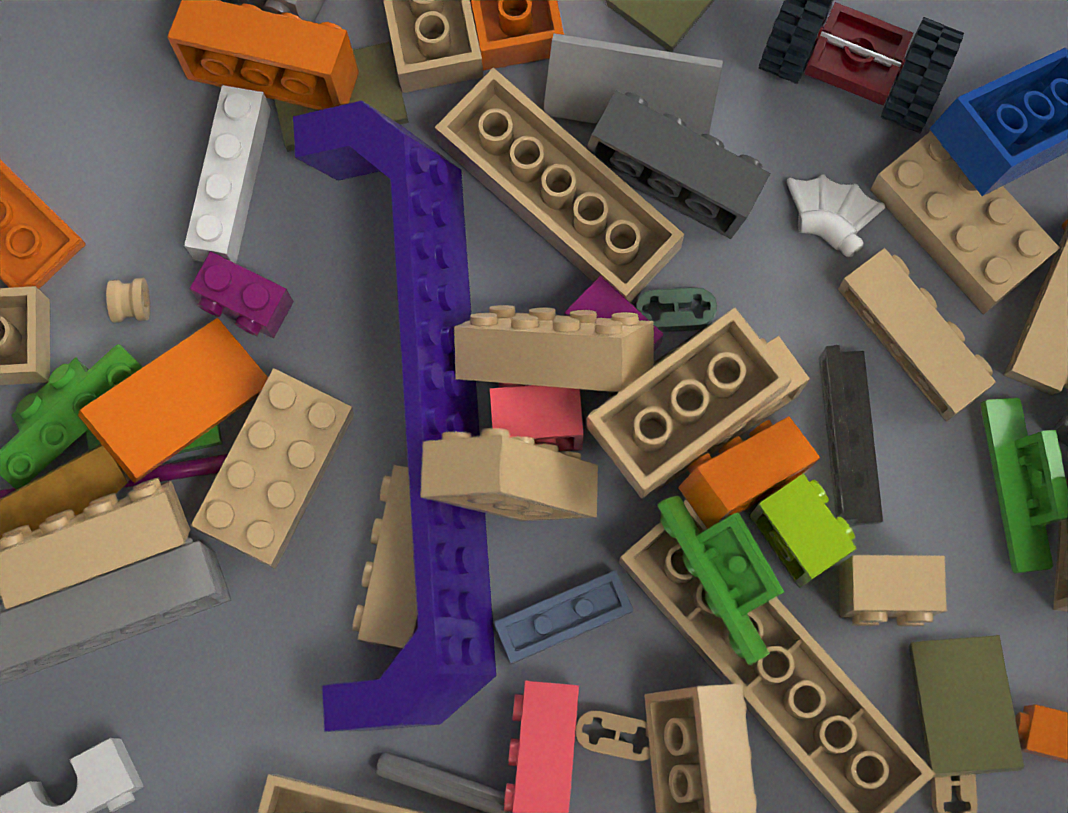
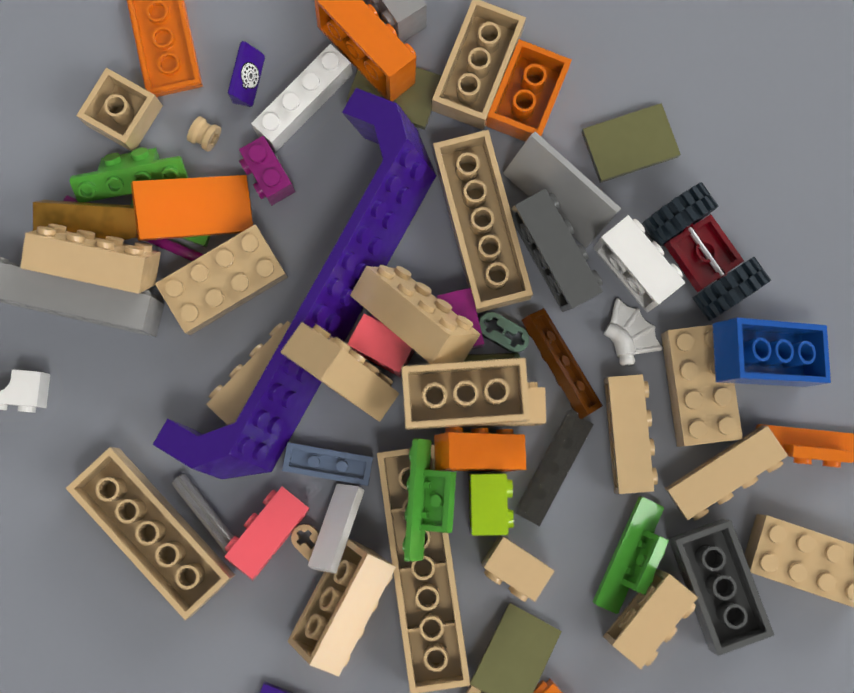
camera: 30 degrees right, 5 degrees up
(135, 194) = (246, 75): none -> dark purple slope
(630, 690) = (336, 528): none -> white tile
(783, 304) = (562, 363): none -> reddish brown plate
(789, 116) = (639, 263): none -> white brick

